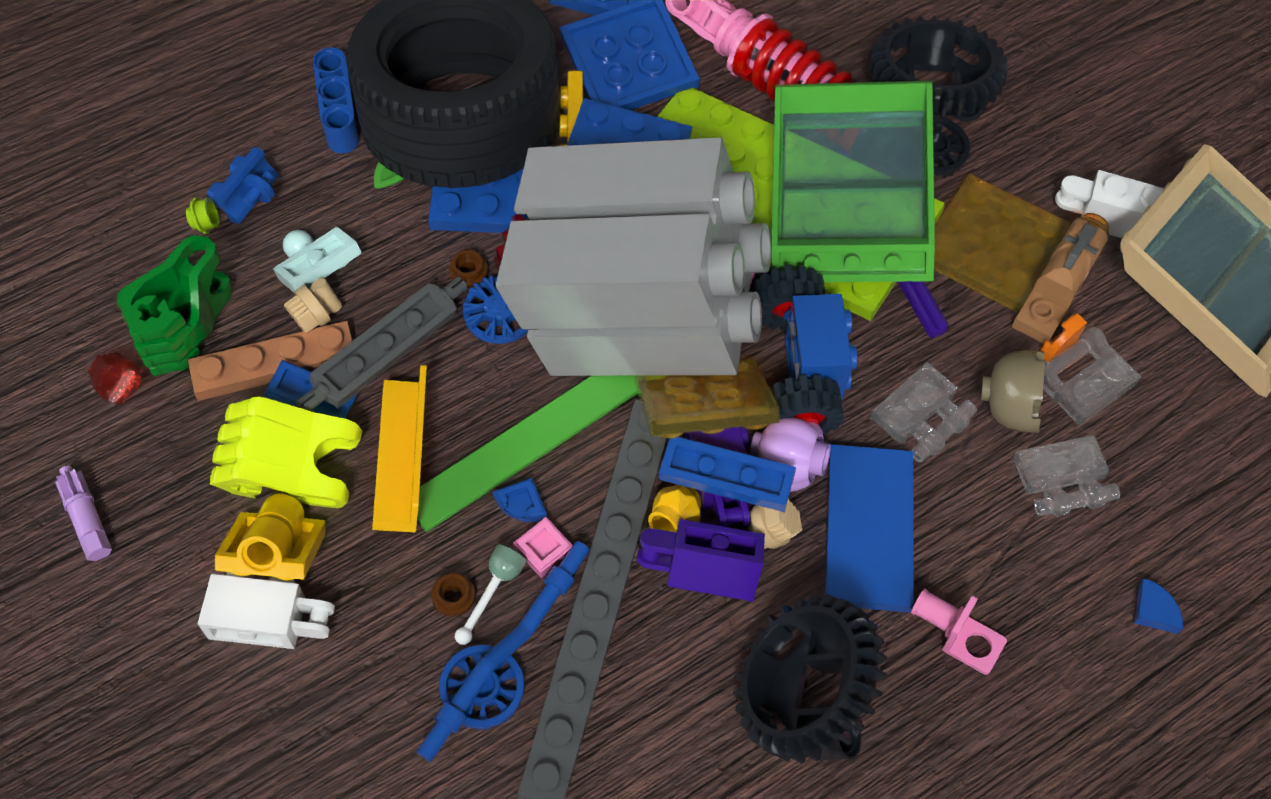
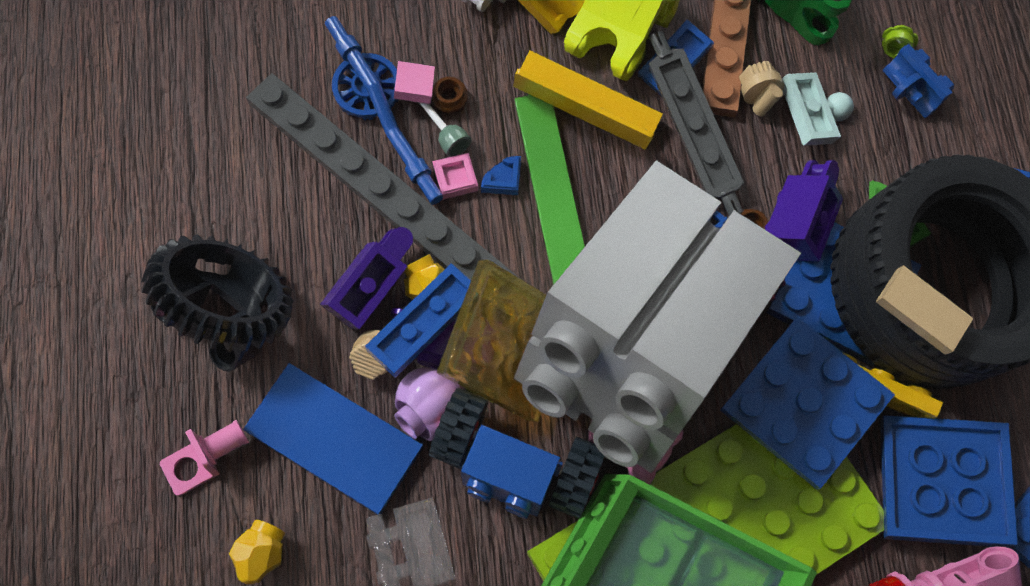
camera: 115 degrees right, 10 degrees up
(436, 223) = (807, 209): none -> dark purple brick
(460, 628) = (414, 82): none -> bright pink tile
(529, 56) = (924, 310): none -> tan tile
(1010, 530) = (257, 552): none -> yellow rock

